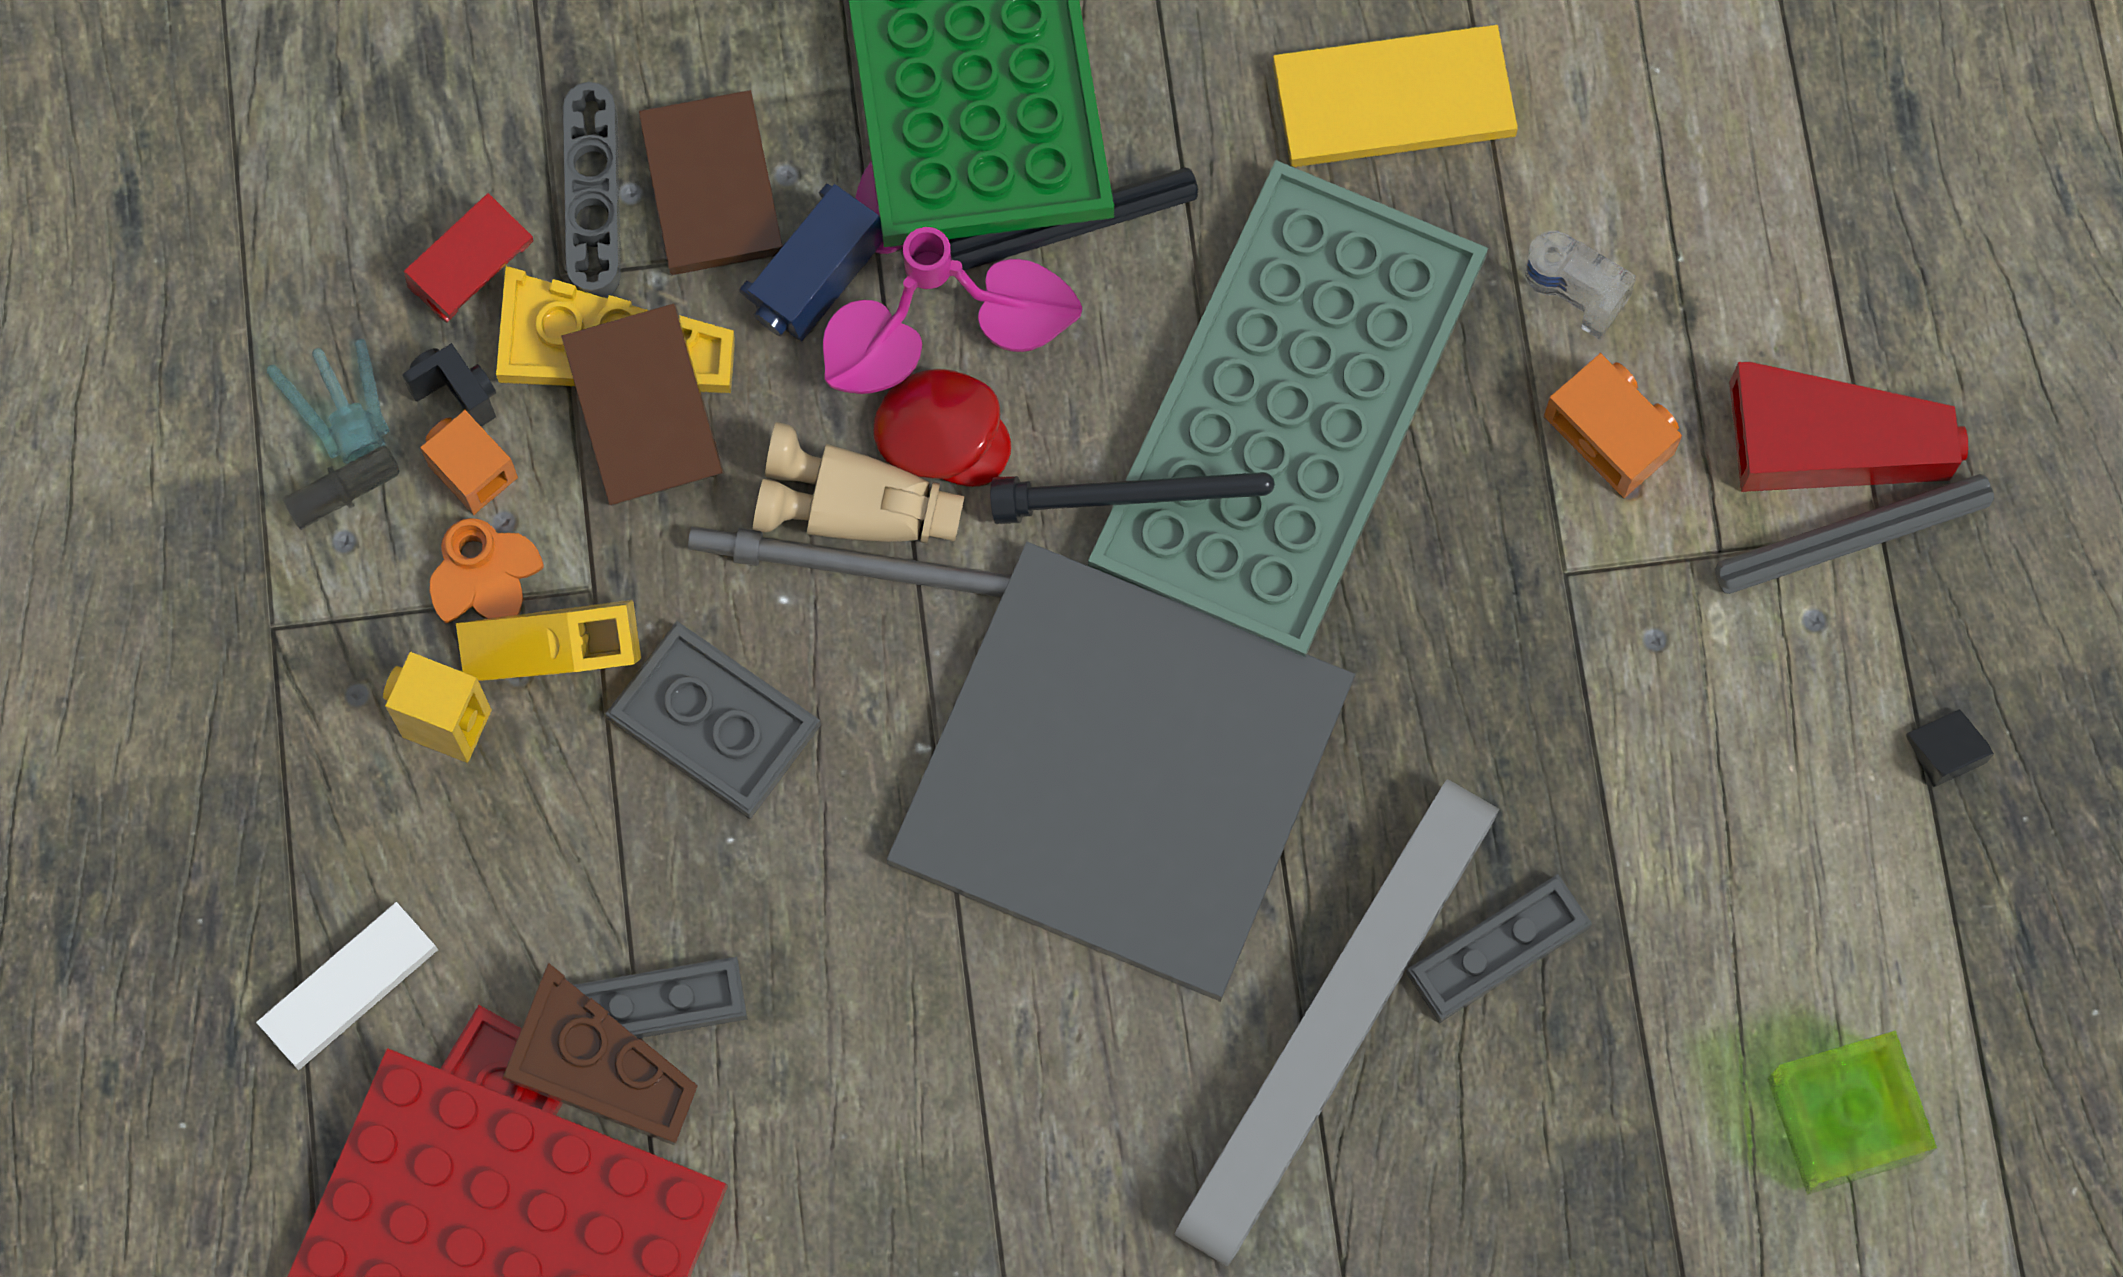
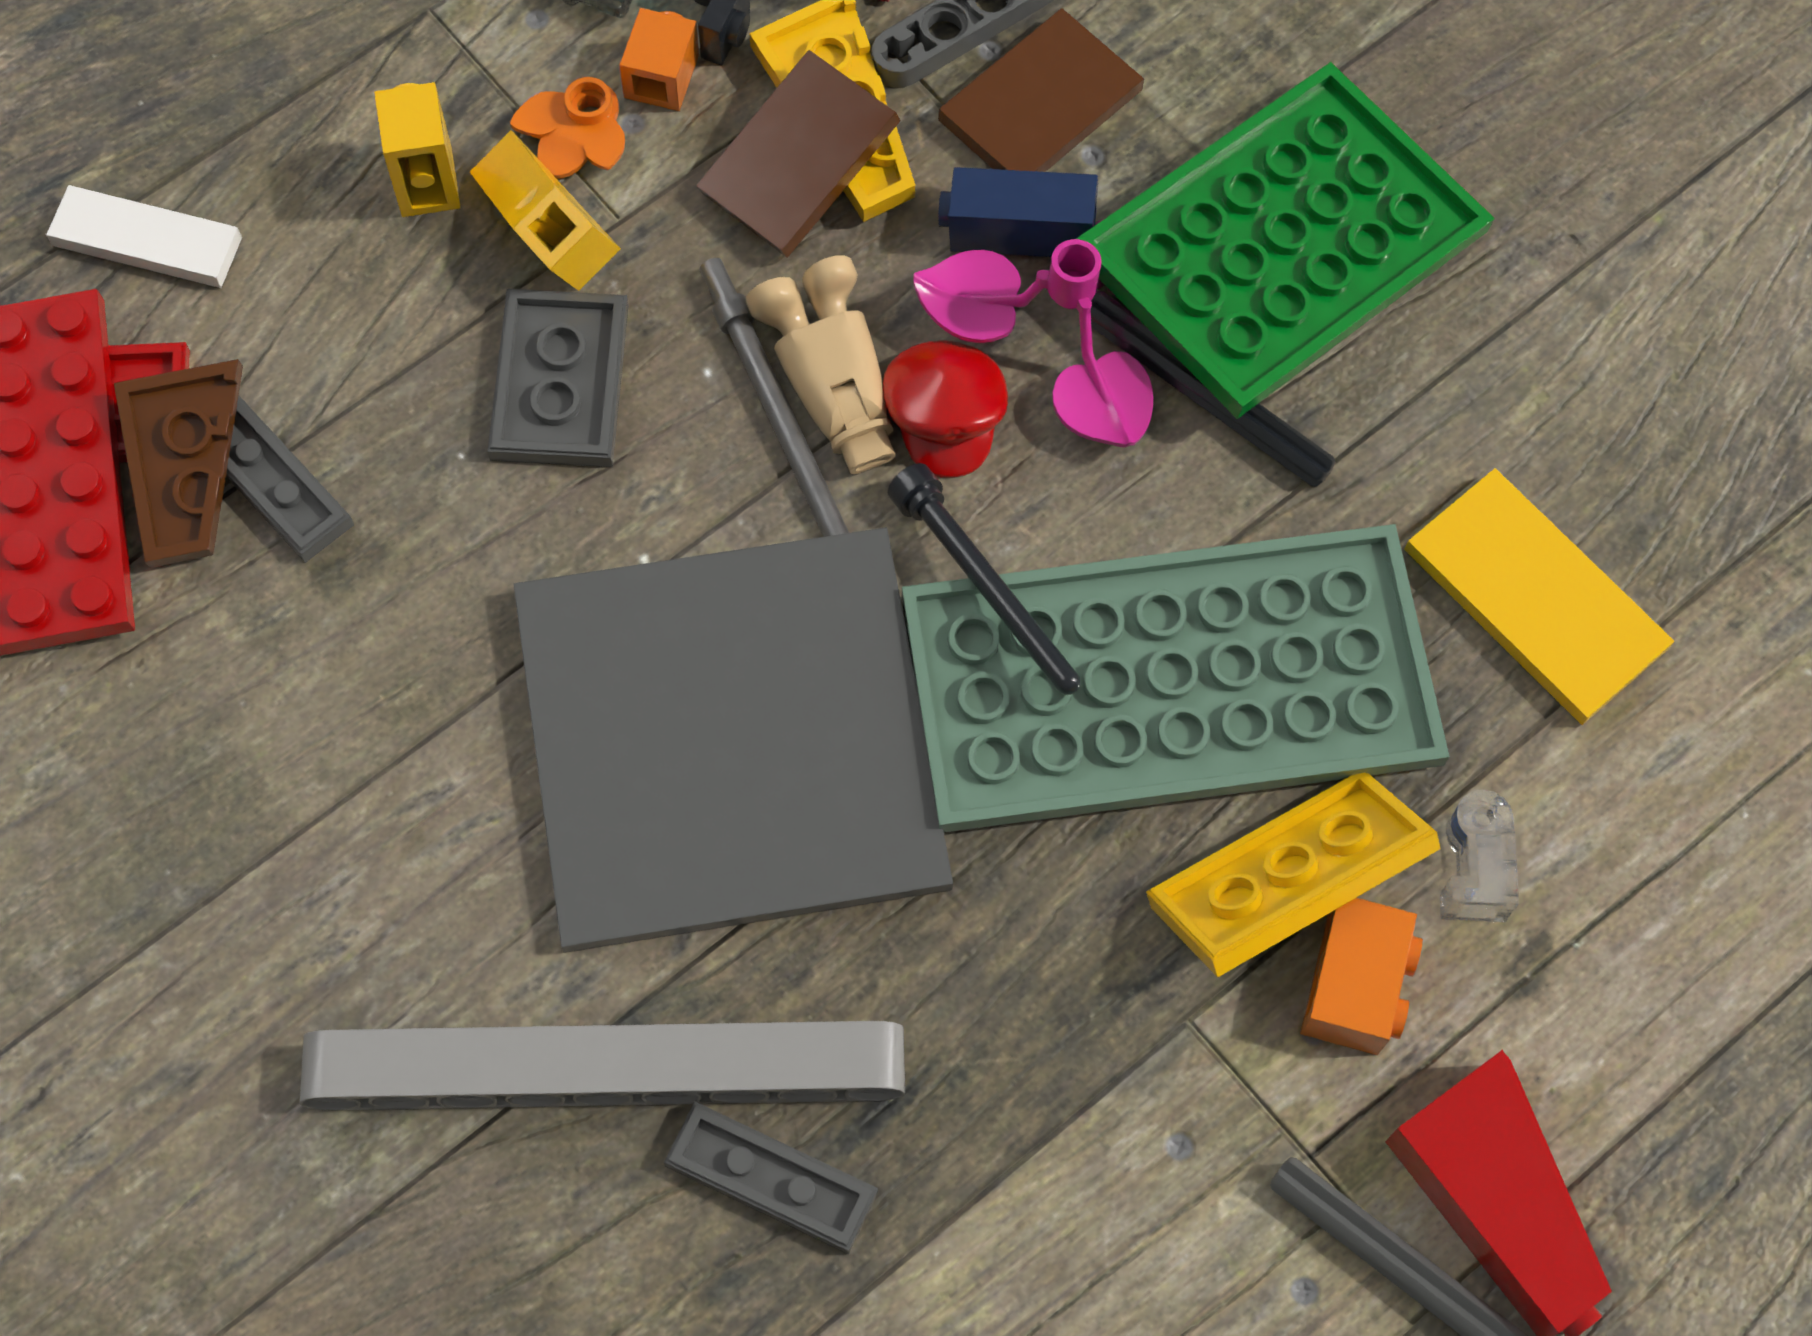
camera: 55 degrees right, 5 degrees down
(1507, 420) = (1292, 871): none -> yellow tile

